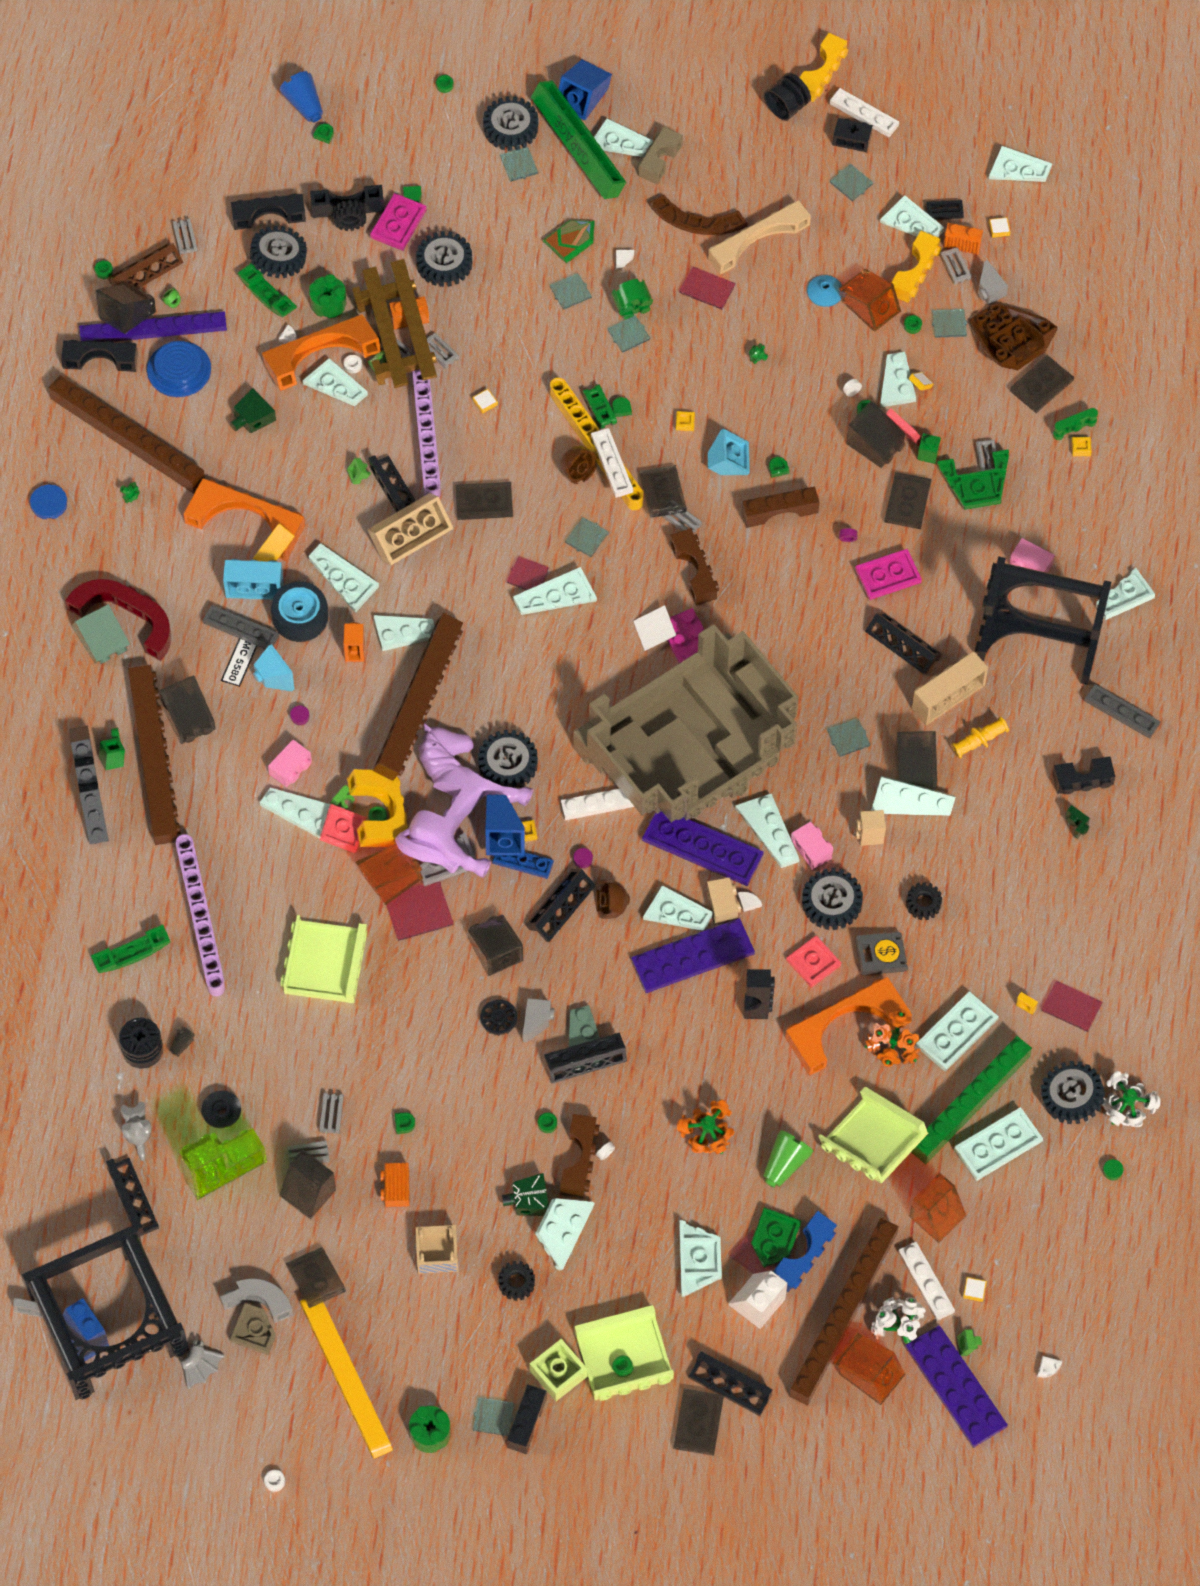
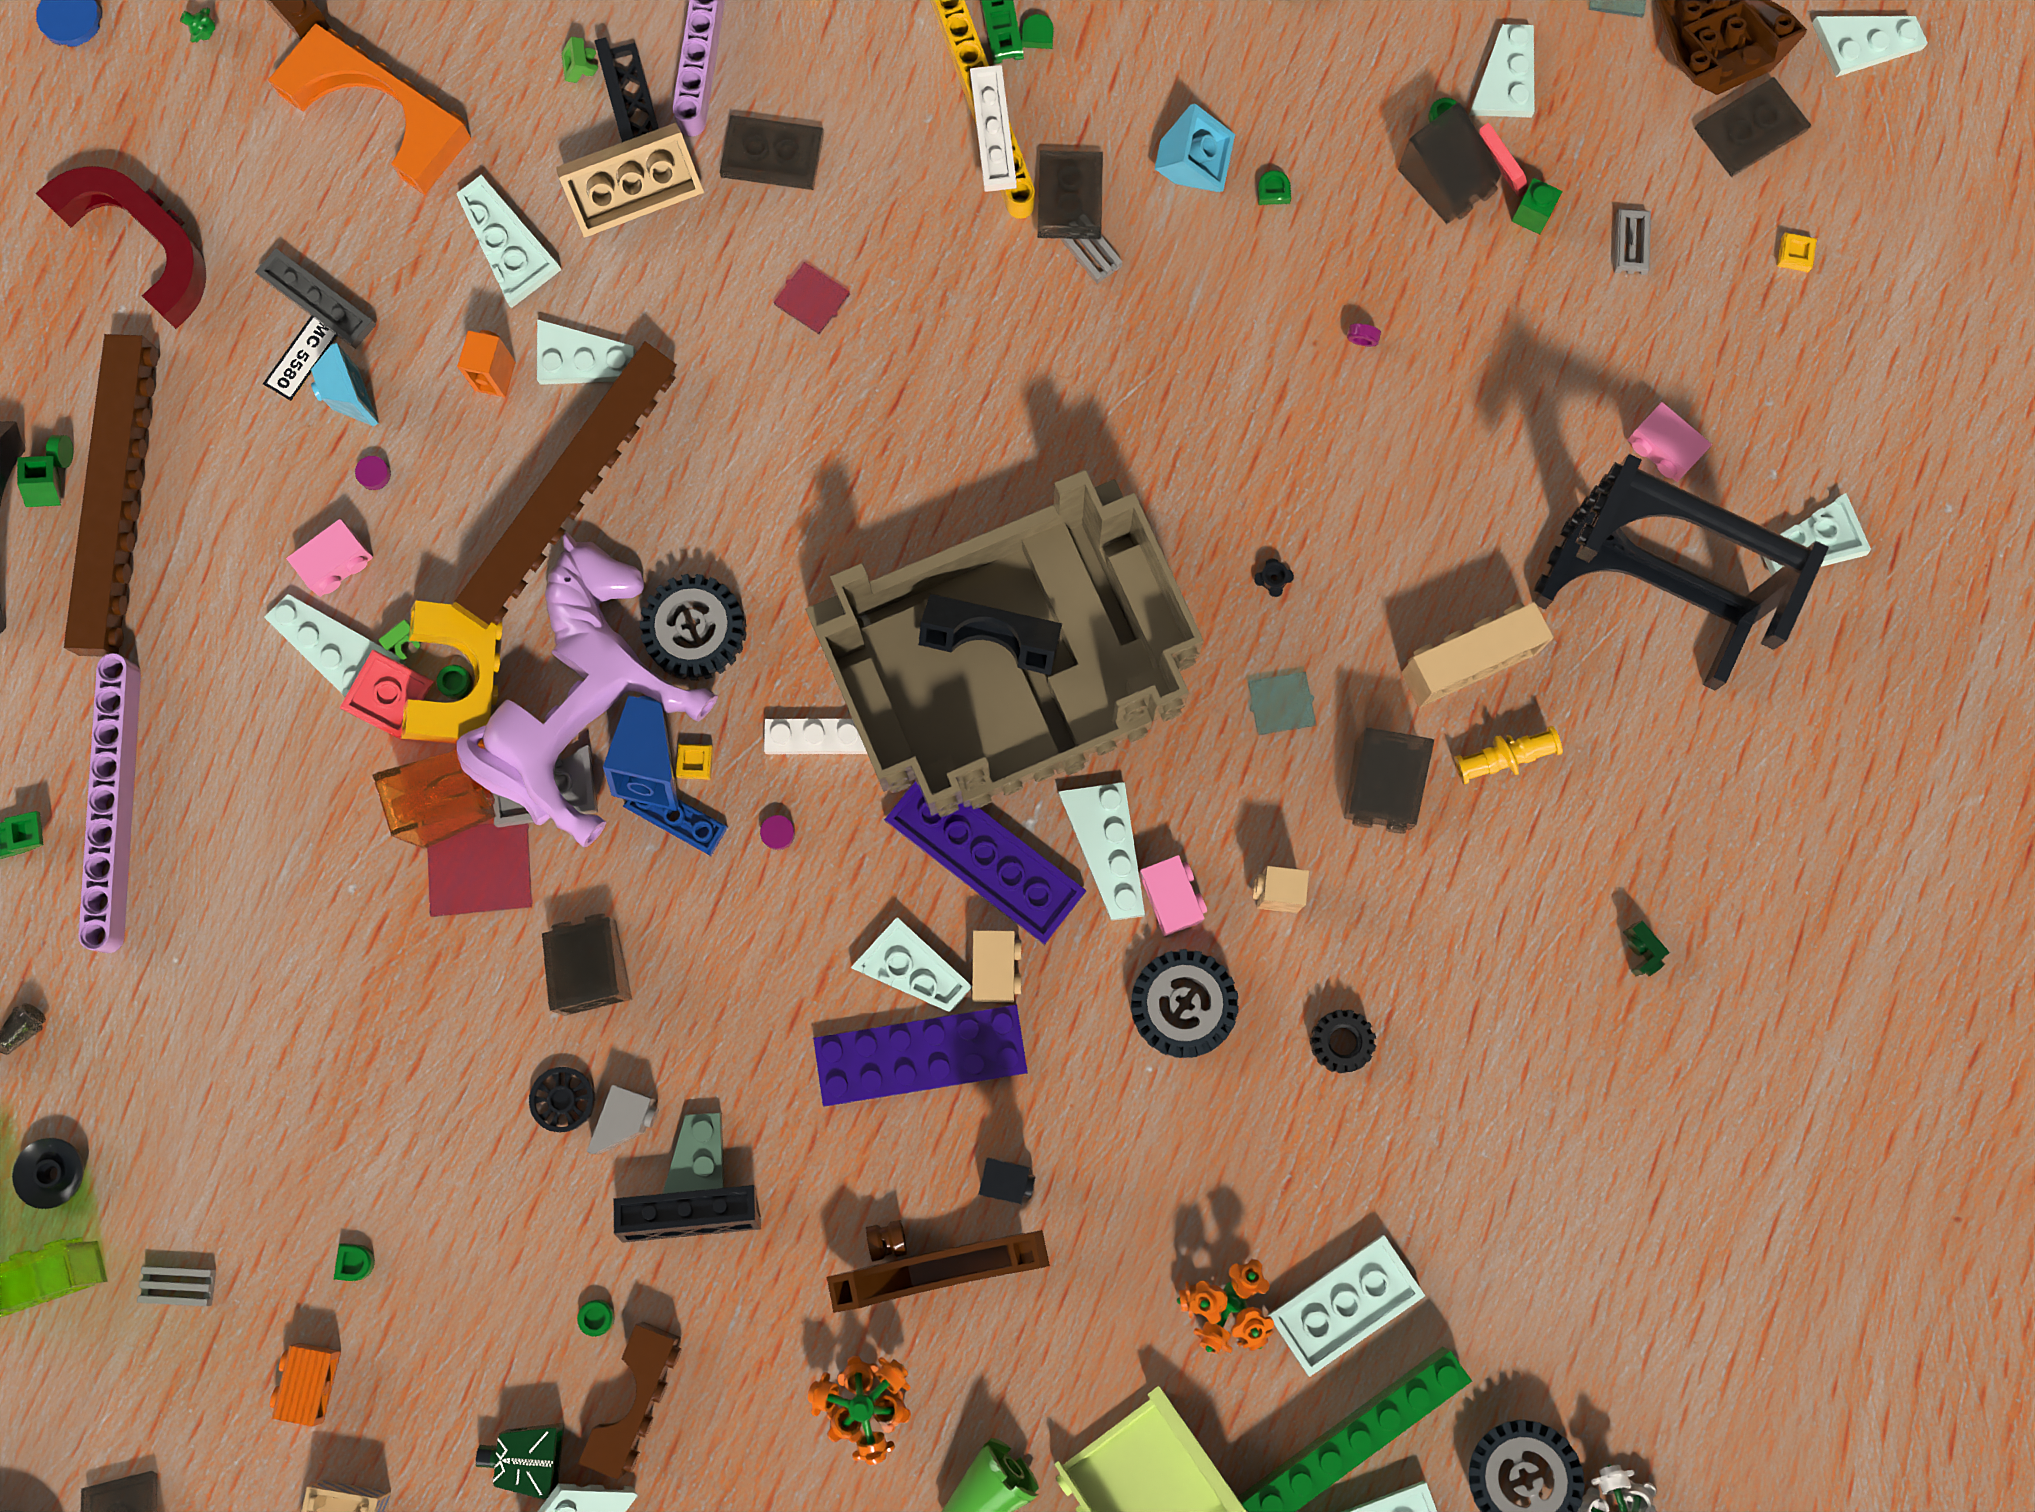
camera: 15 degrees right, 15 degrees up
(101, 634) = (80, 264): sand green slope -> none
(187, 710) = (182, 428): clear smoke slope -> none
(252, 579) = (350, 217): medium azure brick -> none
(274, 545) = (393, 172): yellow sticker -> none
(299, 611) = (413, 289): wheel -> none
(307, 1184) = (154, 1352): clear smoke slope -> none
(324, 960) = (294, 929): yellowish green panel -> none
(333, 1098) = (223, 1212): light grey tile -> none
(556, 899) = (710, 904): black fence -> none
(559, 592) = (852, 341): light aqua wing -> none
(578, 464) = (939, 119): reddish brown cylinder -> none
(586, 537) = (925, 250): clear light blue piece -> none
(605, 1151) = (680, 1400): white tile -> none
(611, 899) = (805, 925): reddish brown cylinder -> none
(654, 628) = (998, 437): white sticker -> none
(659, 722) = (954, 622): none -> black arch
(685, 421) = (1137, 76): yellow tile -> none
(686, 547) = (1085, 303): reddish brown arch -> none
(687, 628) = (1043, 455): dark pink plate -> none
(698, 1049) = (894, 1237): none -> reddish brown wheel
(716, 1063) = (937, 1270): none -> reddish brown arch
(748, 901) = (1040, 974): white tile -> none
(761, 509) = (1295, 259): reddish brown arch -> none
(806, 1036) = (1082, 1257): orange arch -> none
(813, 961) = (1126, 1111): coral tile -> none
(828, 667) = (1273, 567): none -> black plate
(852, 387) = (1430, 71): white tile -> none
(886, 953) = (1253, 1125): dark grey container -> none
(888, 574) = (1416, 419): dark pink plate -> none
(906, 636) = (1424, 542): black fence -> none
(906, 798) = (1357, 844): light aqua wing -> none
(907, 500) = (1479, 292): clear smoke tile -> none
(921, 381) = (1549, 82): yellow tile -> none
(980, 487) = (1606, 293): green wing -> none
(1026, 1003) = (1481, 1280): yellow tile -> none
(1069, 780) = (1644, 865): black arch -> none
(1071, 1006) = (1559, 1296): clear pink piece -> none
(1075, 423) = (1797, 208): green plate -> none
(1096, 325) = (1867, 40): none -> light aqua wing
(1122, 711) = (1767, 756): dark grey plate -> none

